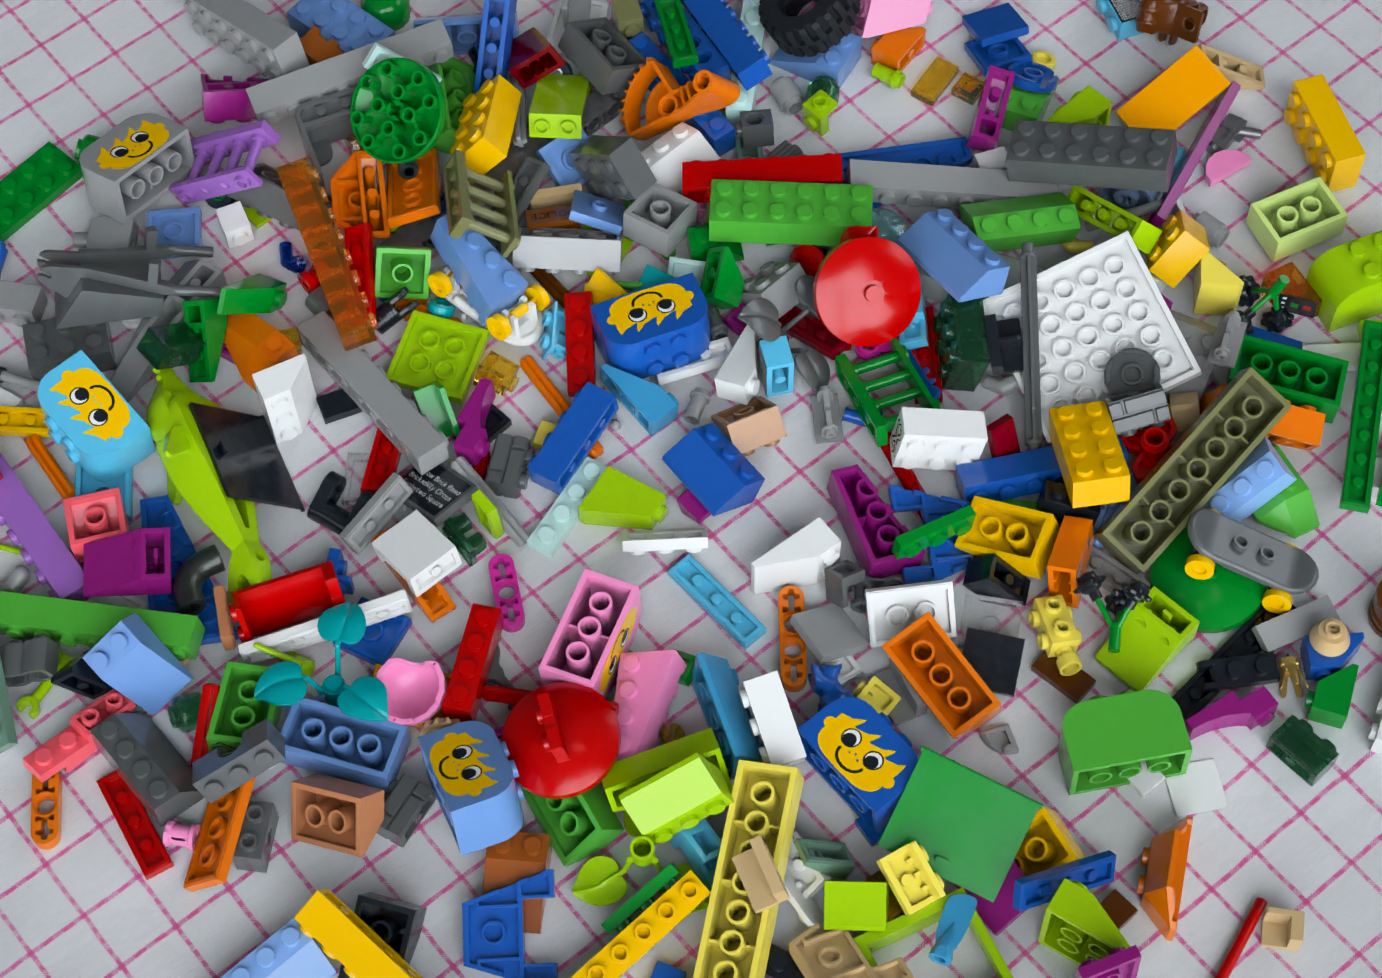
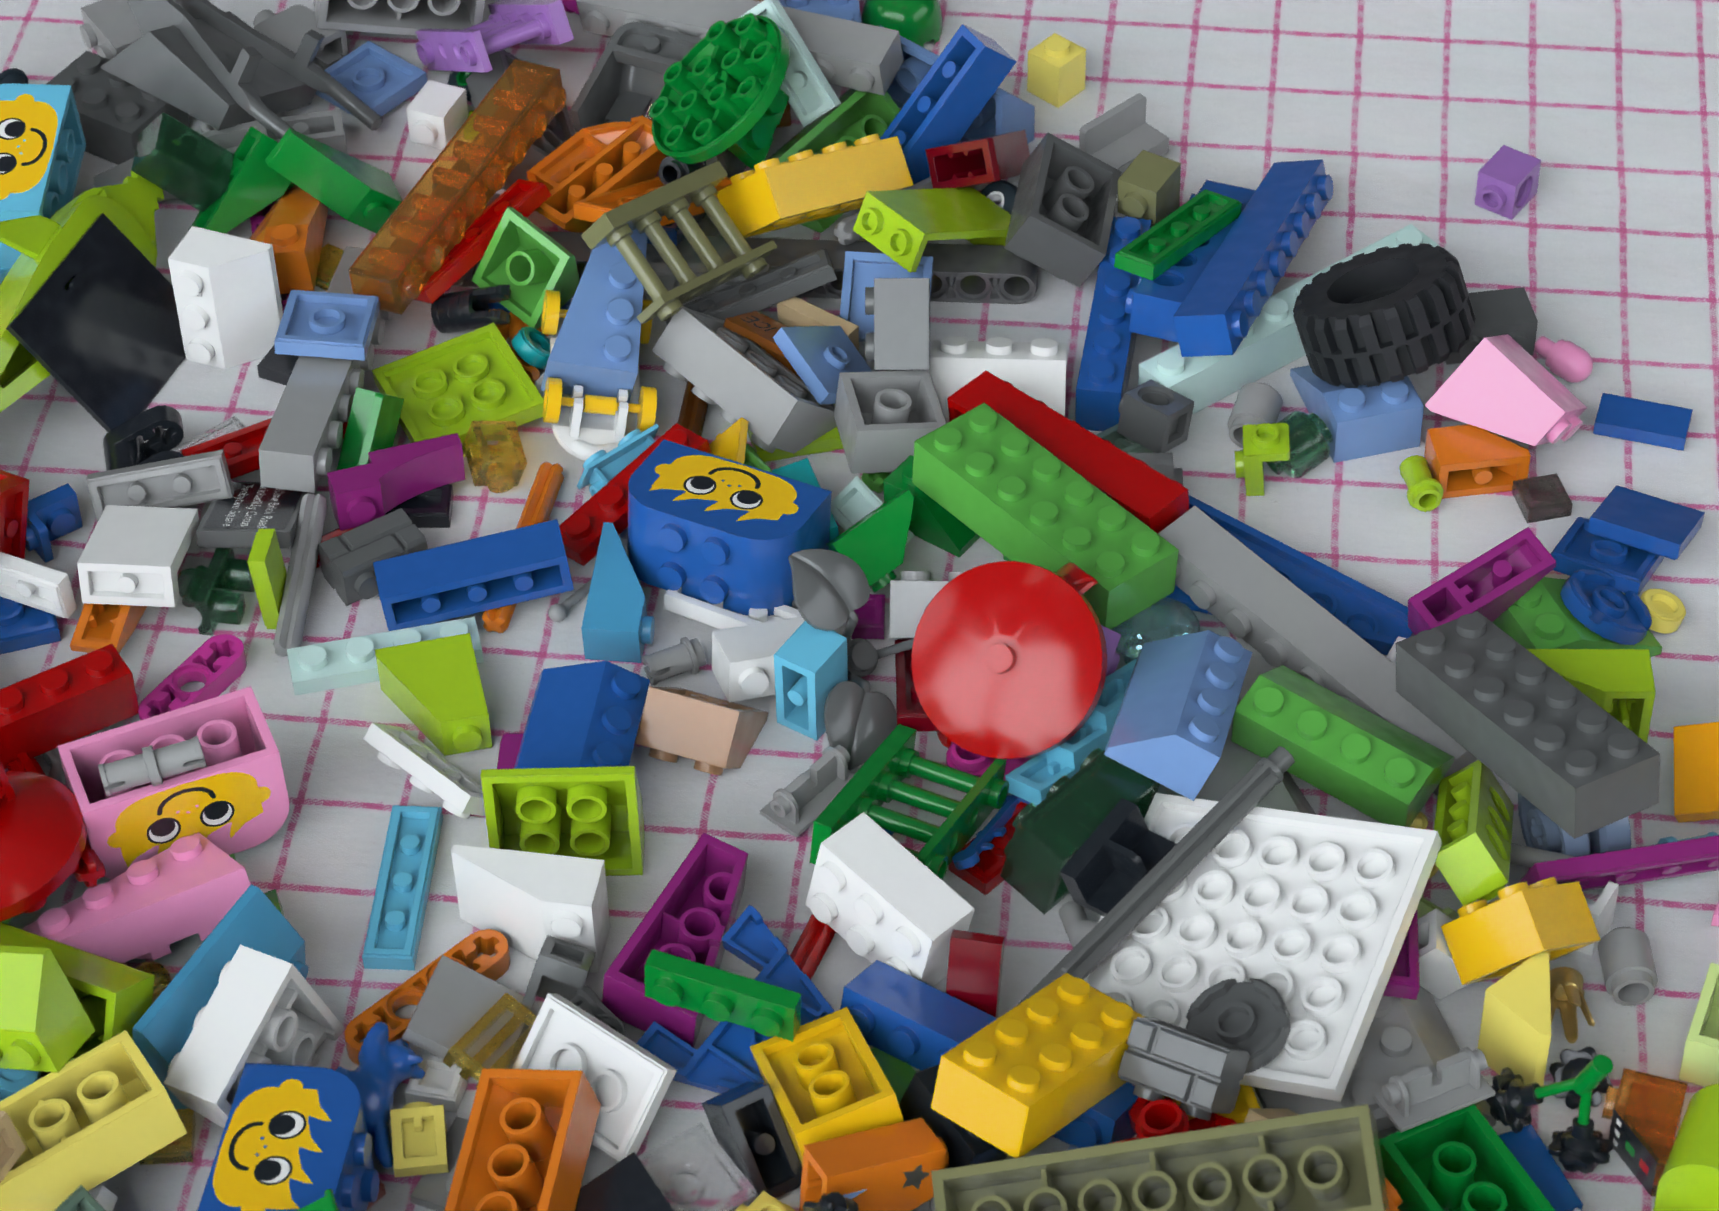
camera: 45 degrees right, 15 degrees down
(360, 372) = (327, 325): none -> medium blue plate
(602, 639) = (152, 765): none -> light grey pin
(702, 95) = (1079, 301): orange arm -> none
(763, 516) = (568, 813): none -> lime slope
(849, 632) = (473, 1066): none -> clear yellow tile
(934, 81) = (1474, 533): clear yellow tile -> none
(938, 44) = (1542, 498): none -> clear smoke tile

